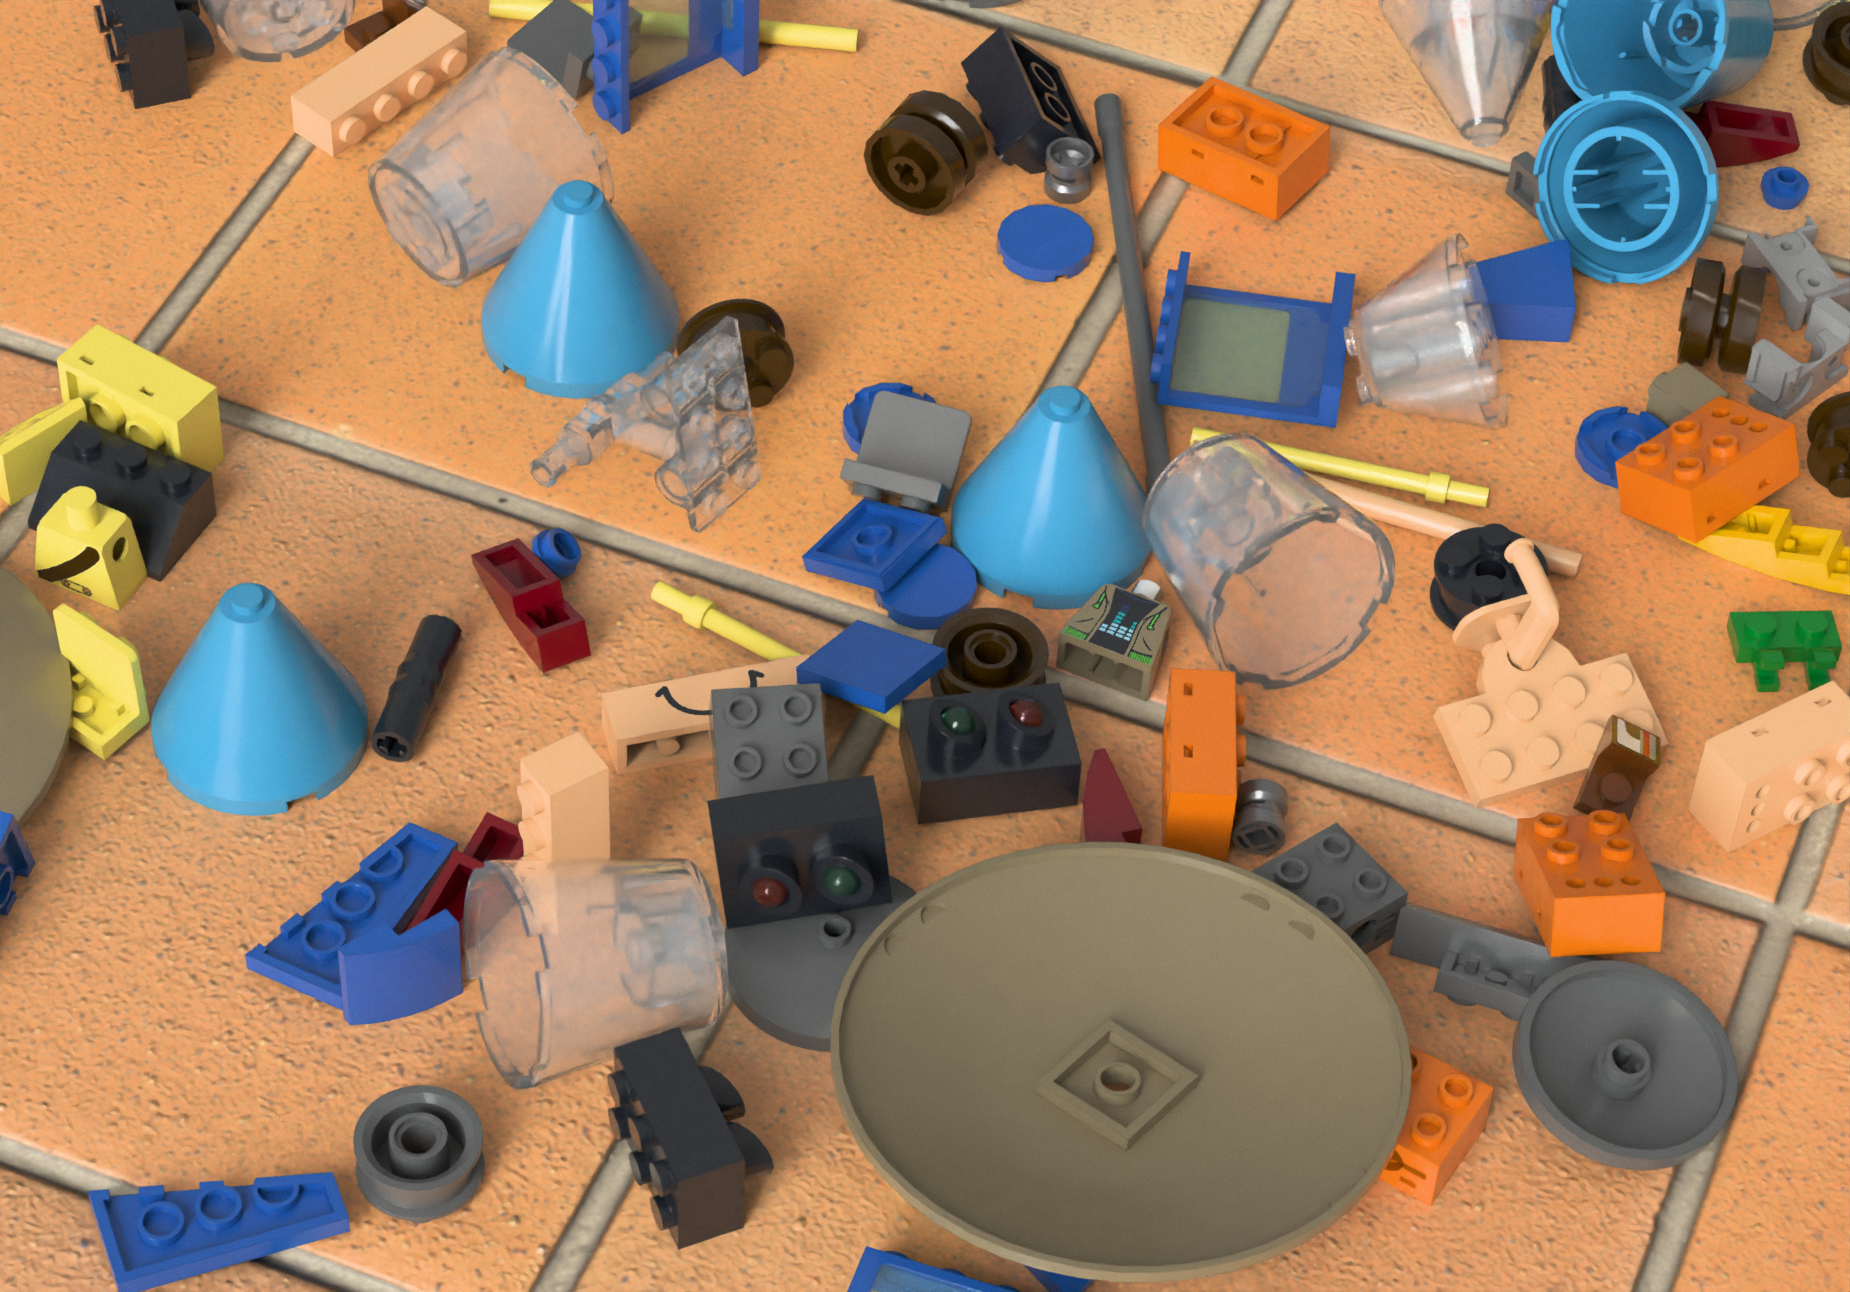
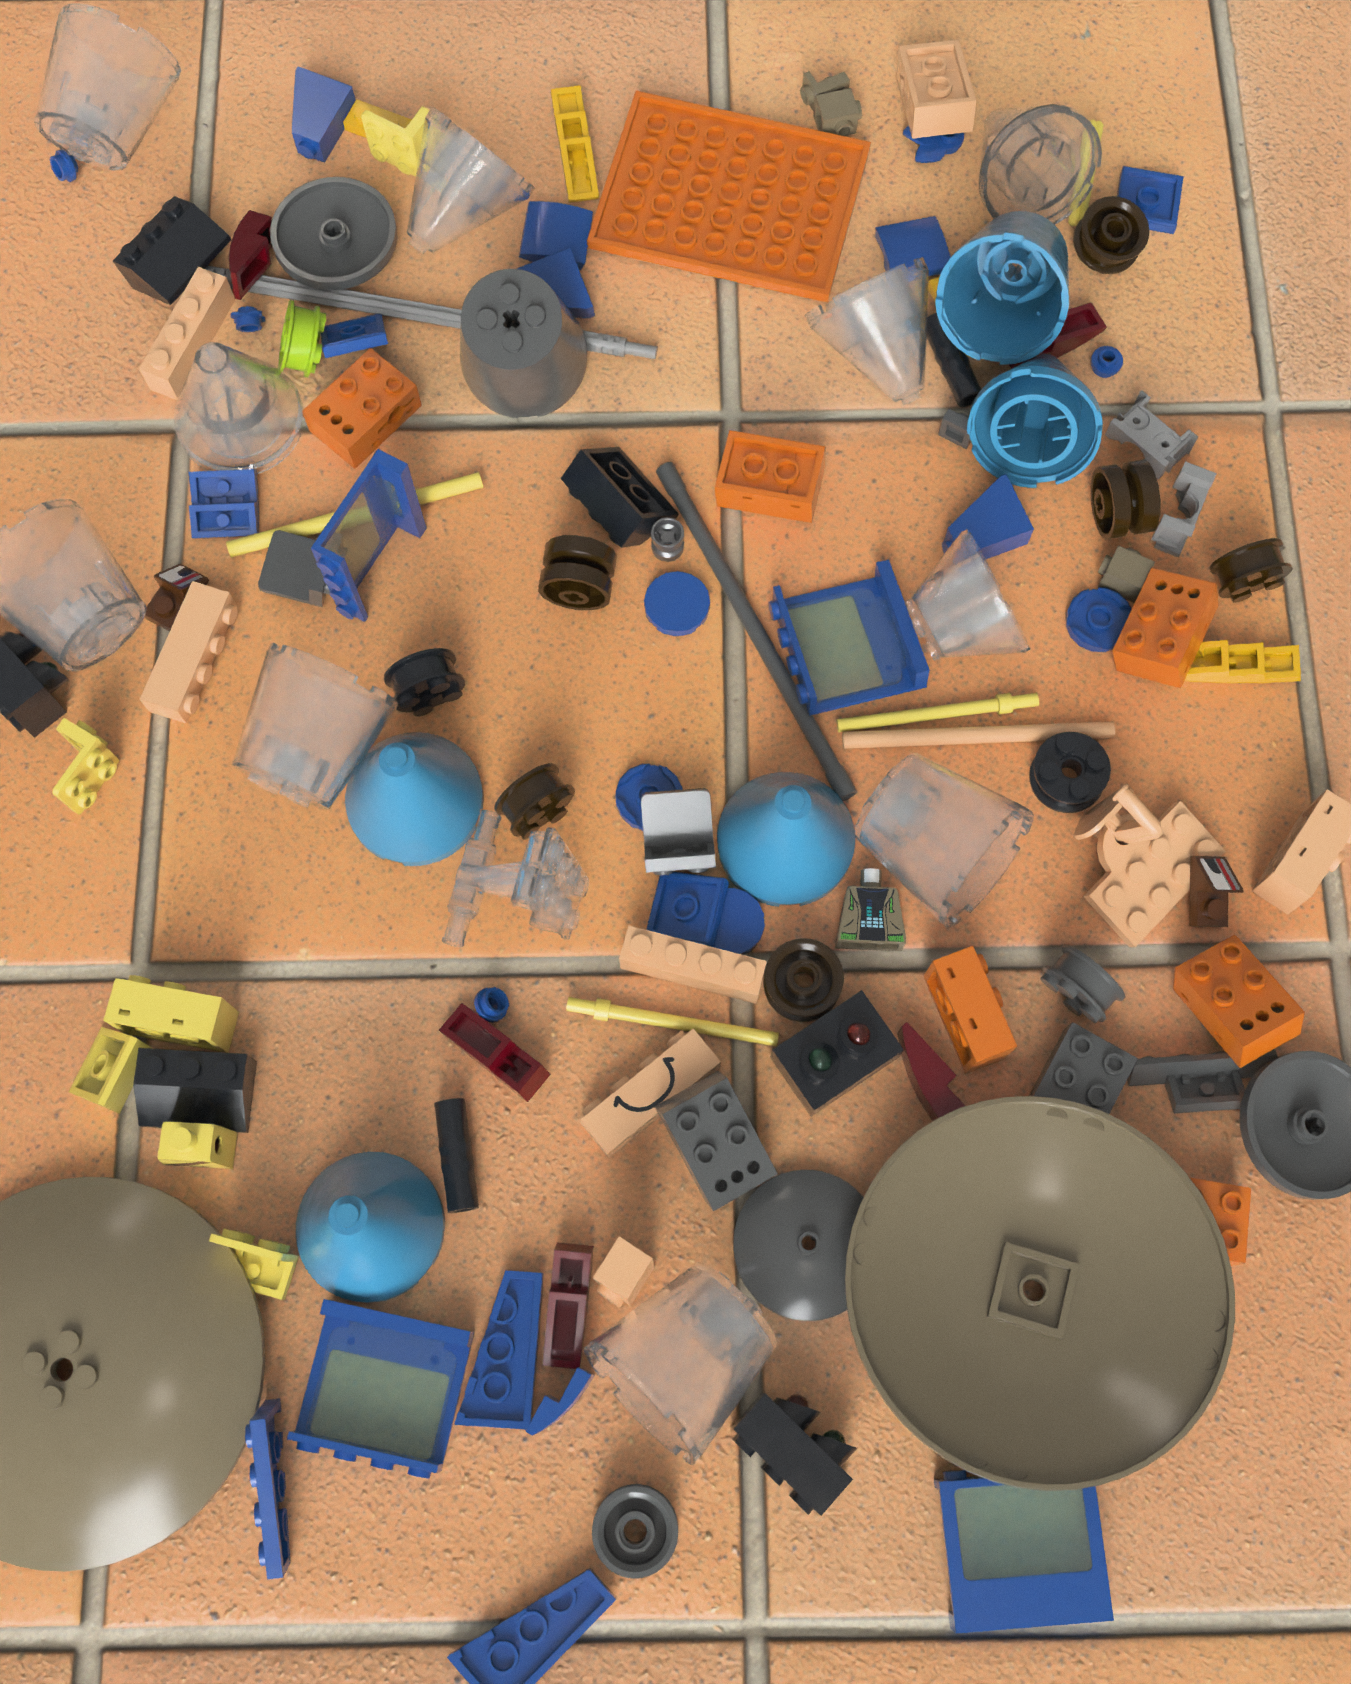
camera: 20 degrees left, 25 degrees up
(181, 140) = (88, 770): none -> light yellow bracket
(181, 888) = (383, 1389): none -> clear light blue panel
(664, 191) = (424, 680): none -> black wheel
(800, 851) = (769, 1209): black piece -> none
(833, 587) = (692, 964): none -> light nougat brick
(871, 666) = (740, 1028): blue tile -> none
(1261, 825) = (1018, 1021): flat silver wheel -> none
(1375, 792) = (1083, 984): none -> dark grey wheel
(1785, 636) = (1256, 731): green plate -> none

